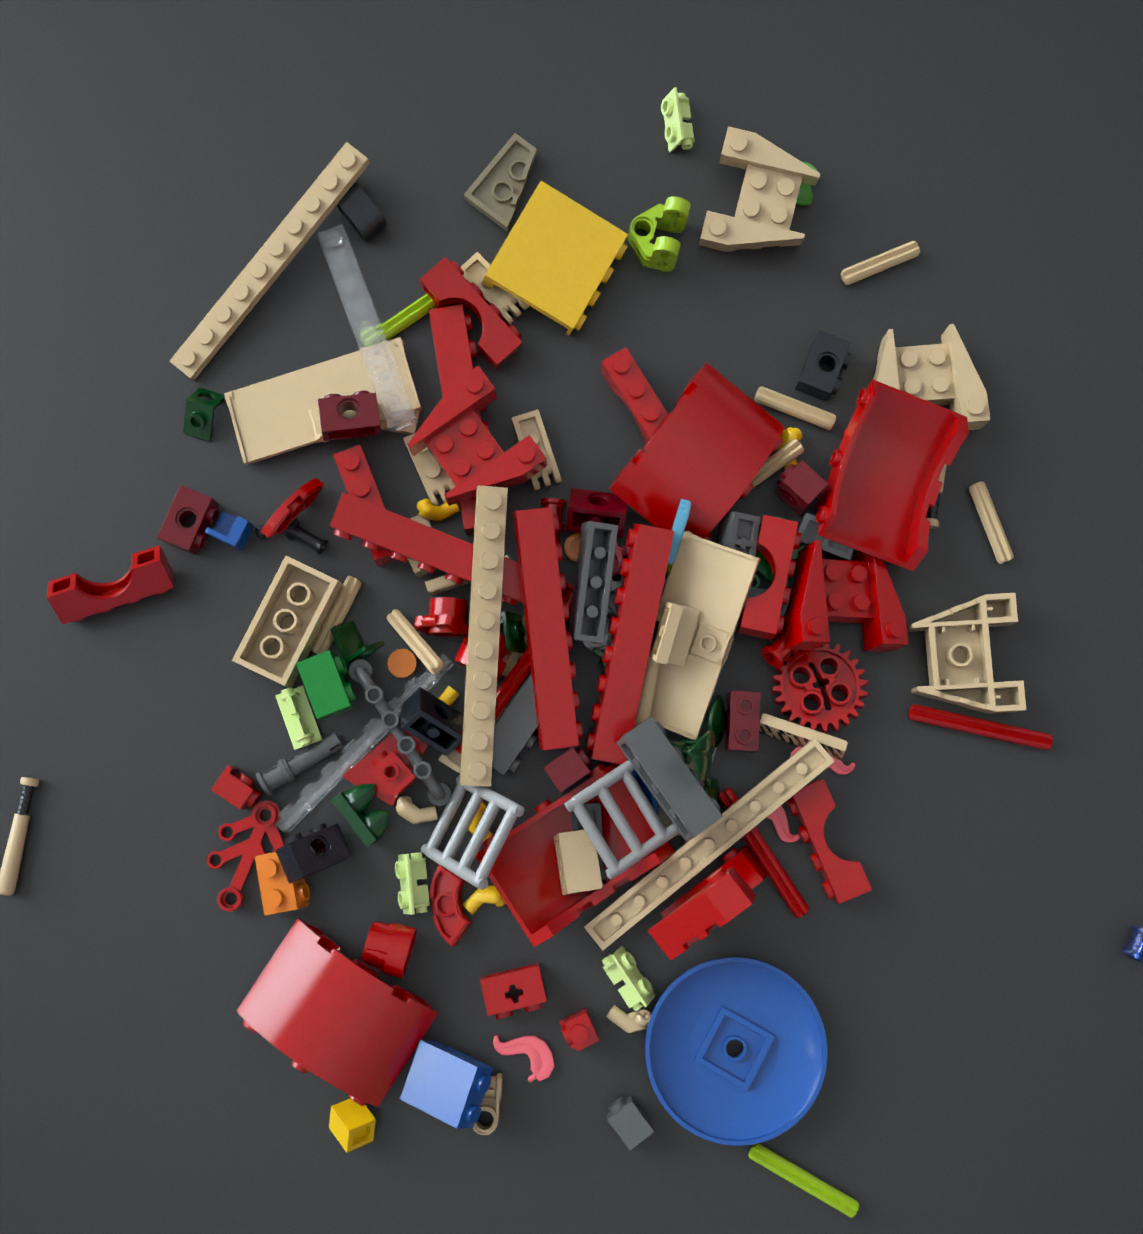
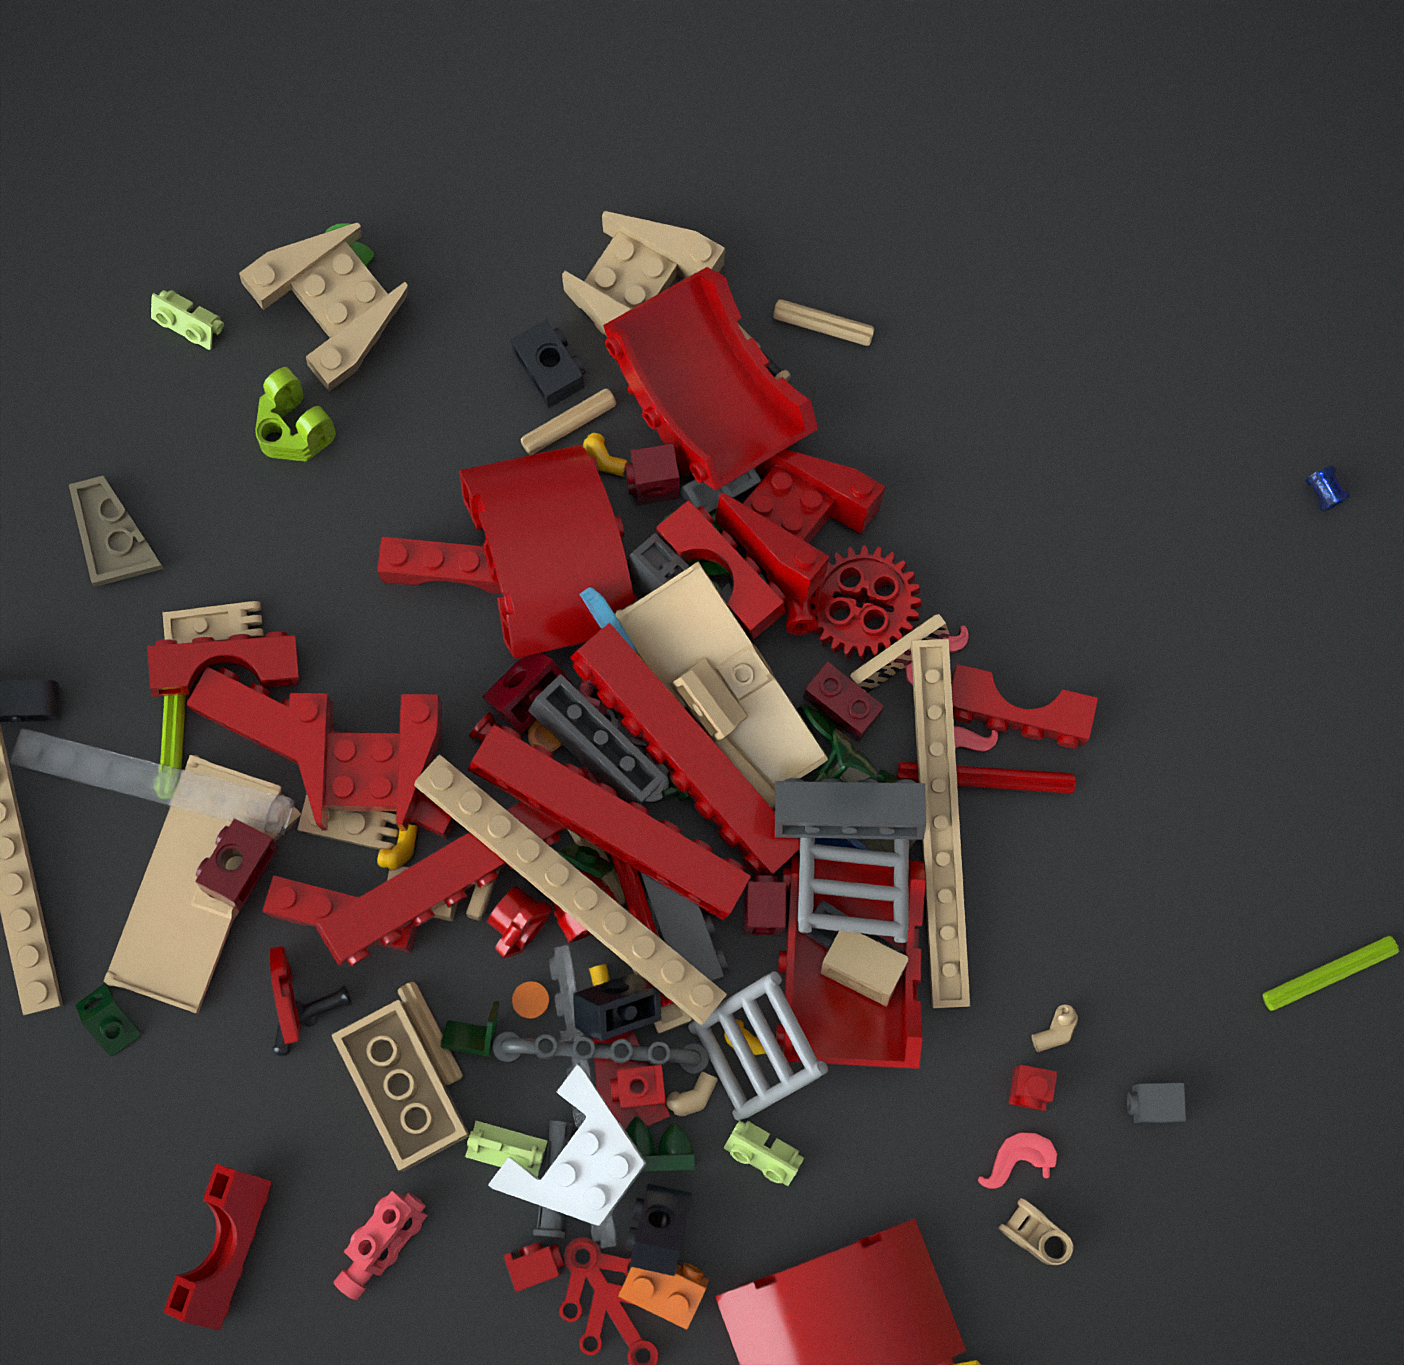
camera: 55 degrees left, 5 degrees down
(186, 504) = (192, 1105): dark red brick -> none
(192, 678) = (382, 1231): none -> coral brick
(231, 530) = (256, 1079): blue panel -> none
(319, 780) = (591, 1168): none -> white wing
(327, 684) = (498, 1089): green brick -> none
(389, 948) = (814, 1220): red piece -> none
(415, 641) = (520, 968): tan axle -> none
(447, 905) = (810, 1132): red tile -> none
(447, 1084) = (993, 1258): brick -> none
(479, 897) = (830, 1085): yellow arm -> none
(497, 985) = (944, 1102): red brick -> none
(532, 425) = (385, 697): tan hinge -> none
(557, 257) = (233, 537): yellow panel -> none
(637, 989) = (1030, 1000): yellowish green hinge -> none
(709, 902) = (998, 862): red wedge -> none
(743, 1095) = (1212, 934): blue dish -> none
(778, 460) = (610, 471): tan axle -> none
(880, 262) = (486, 233): tan axle -> none
(961, 656) = (935, 446): tan wedge -> none
(980, 727) = (1014, 481): red axle -> none

